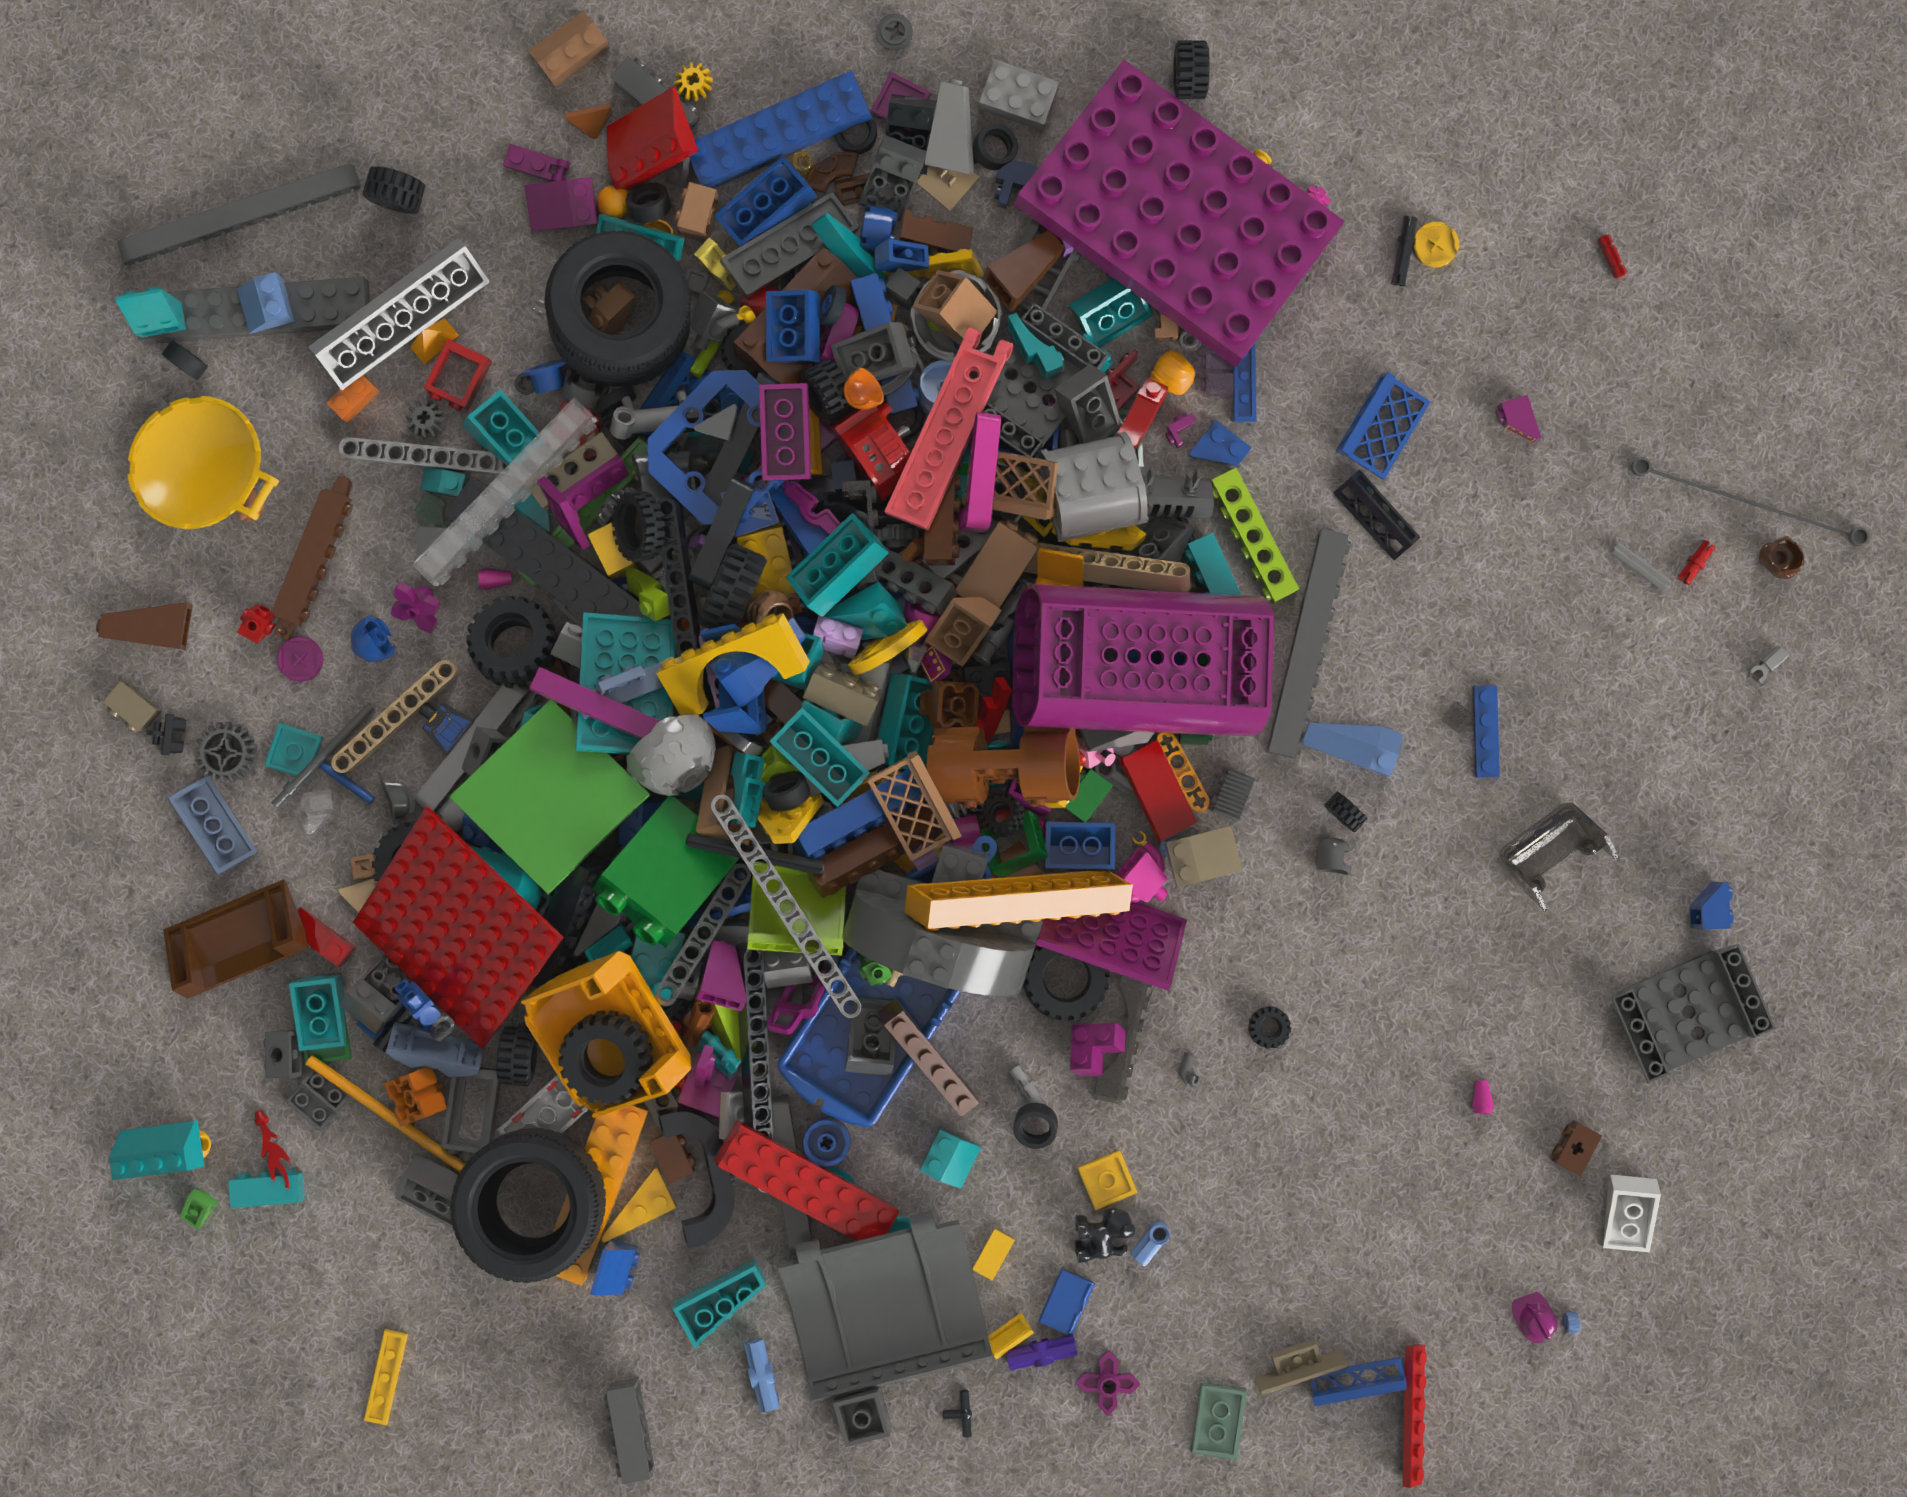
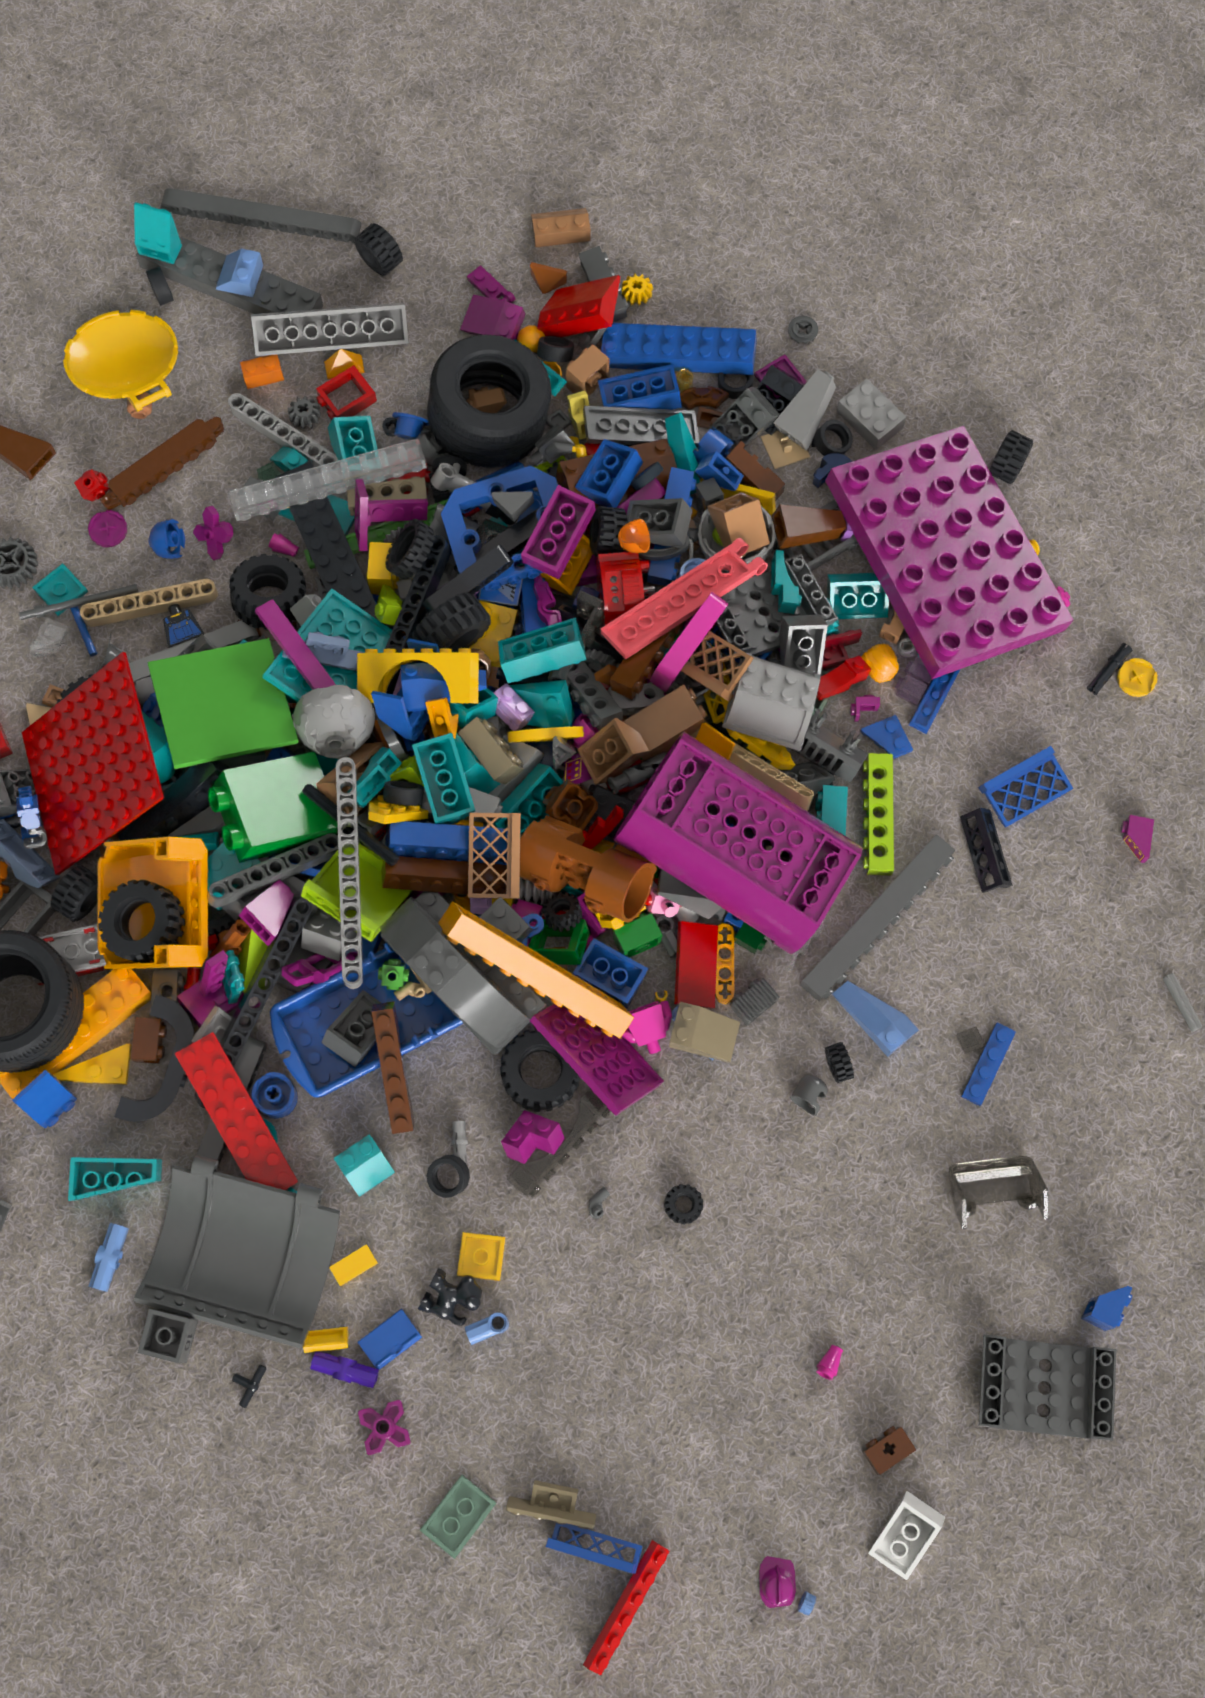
camera: 30 degrees right, 15 degrees down
(782, 695) = (441, 718): none -> light orange slope

